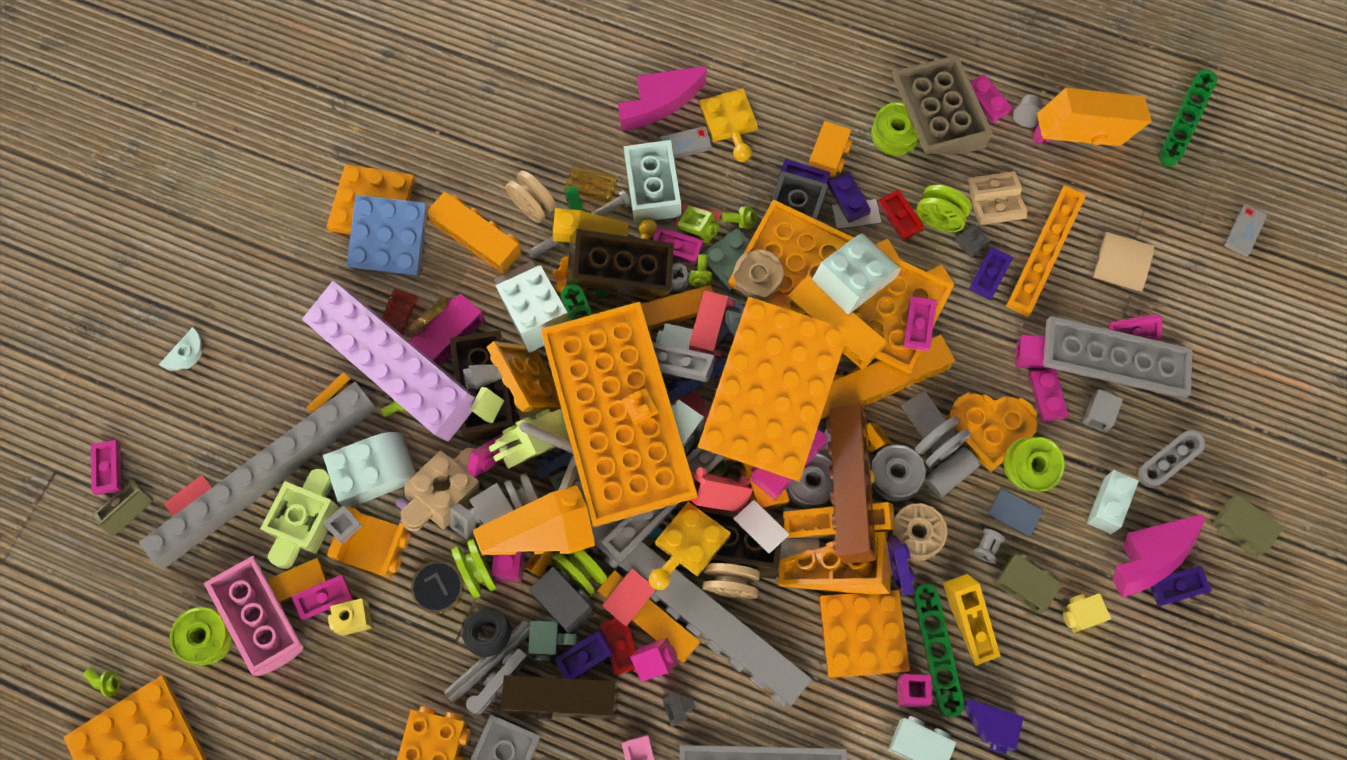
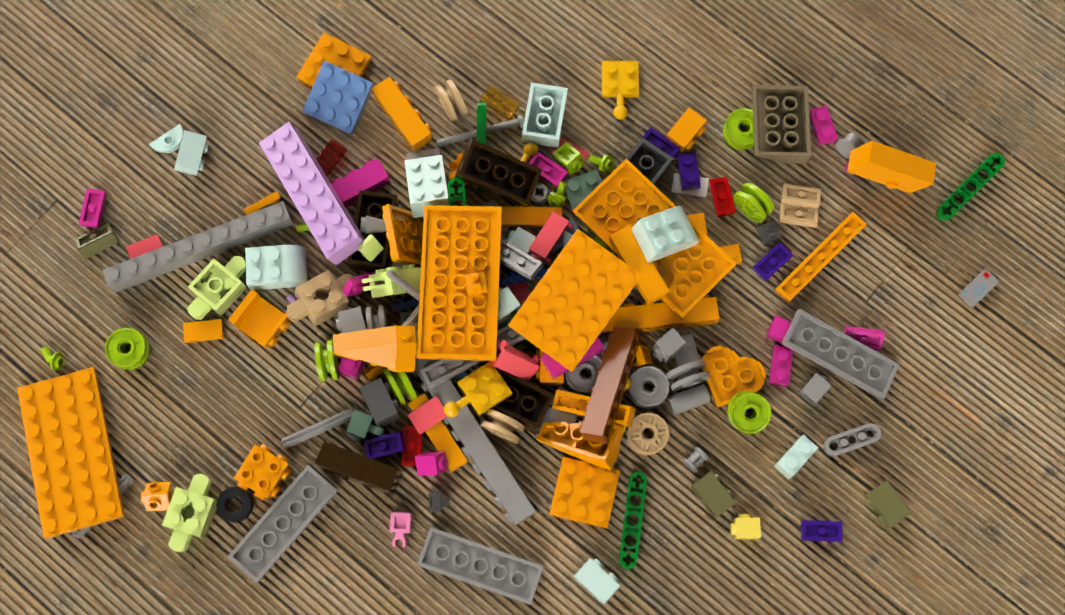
camera: 15 degrees right, 5 degrees up
(216, 358) = (190, 153): none -> light aqua brick
(254, 617) = (166, 347): bright pink brick -> none
(322, 597) = (217, 347): dark pink plate -> none
(342, 524) = (245, 301): light grey plate -> none
(350, 617) = (232, 367): light yellow brick -> none
(428, 315) = (349, 167): clear yellow tile -> none
(437, 587) = (298, 365): black tile -> none
(462, 521) = (328, 325): light grey plate -> none
(494, 683) = (333, 436): light grey plate -> none
(497, 642) = (317, 398): black tyre -> none
(569, 220) = (471, 130): yellow slope -> none
(661, 96) = (574, 49): dark pink slope -> none
(689, 142) = (582, 91): light grey tile -> none
(758, 274) = (596, 212): tan tile -> none
(761, 526) = (536, 395): white sticker -> none
(902, 573) = (626, 460): dark purple plate -> none
(905, 413) = (668, 346): none -> light grey brick
(914, 691) = (604, 542): dark pink brick -> none
(919, 323) = (699, 285): dark pink plate -> none
(972, 618) = (664, 506): yellow slope -> none
(994, 726) = (652, 584): dark purple slope -> none
(1015, 512) = (725, 442): sand blue sticker -> none
(1123, 262) = (875, 283): tan slope -> none
(1156, 553) = (813, 503): dark pink slope -> none

